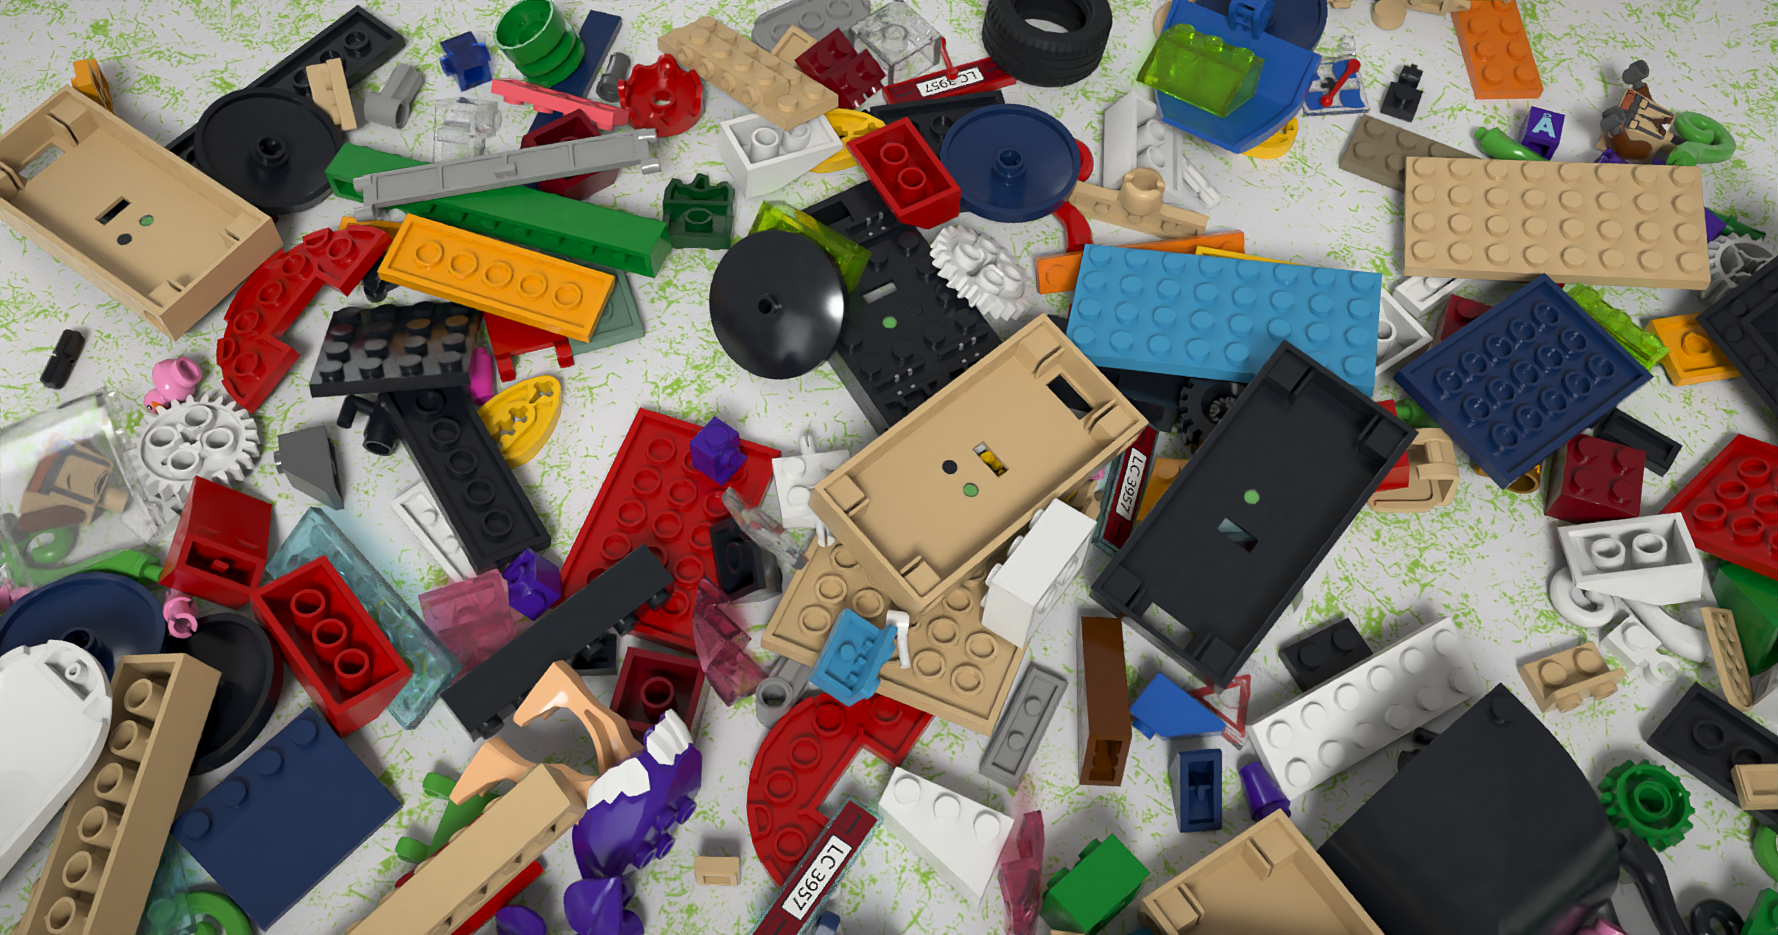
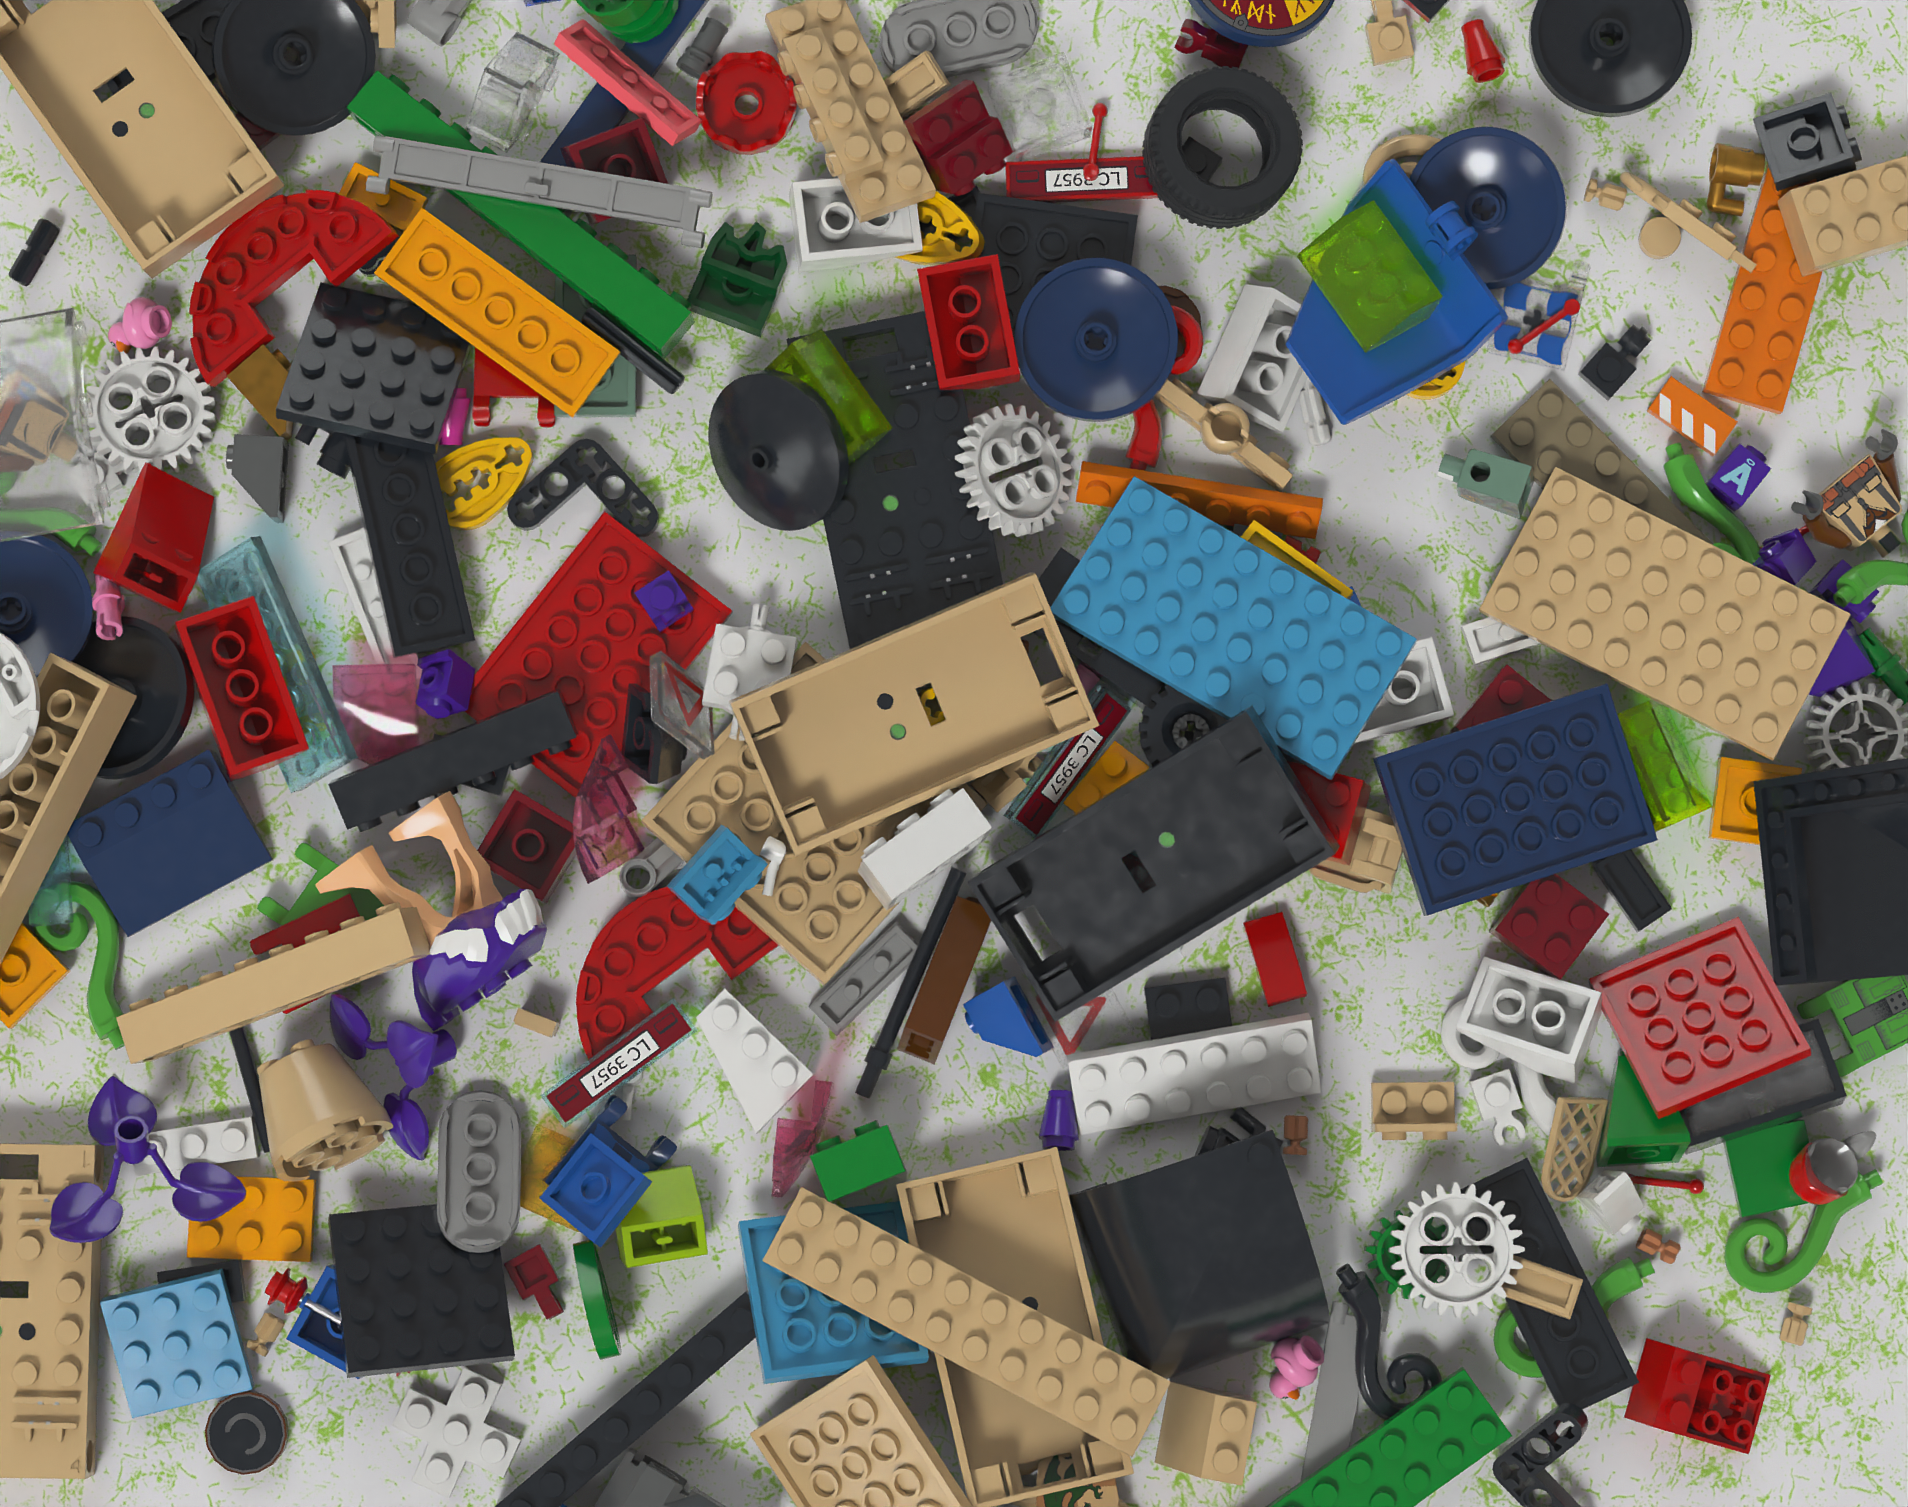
camera: 20 degrees right, 25 degrees up
(291, 399) = (262, 382): none -> pearl gold slope
(608, 394) = (577, 479): none -> black beam
(631, 279) = (633, 349): none -> black axle
(1066, 792) = (879, 1056): none -> black bar
(1197, 789) = (997, 1100): dark blue slope -> none
(1363, 181) = (1503, 490): none -> sand green torso
(1386, 589) = (1275, 959): none -> red slope
(1479, 111) = (1692, 416): none -> orange tile
(1718, 809) = (1456, 1211): none -> white gear

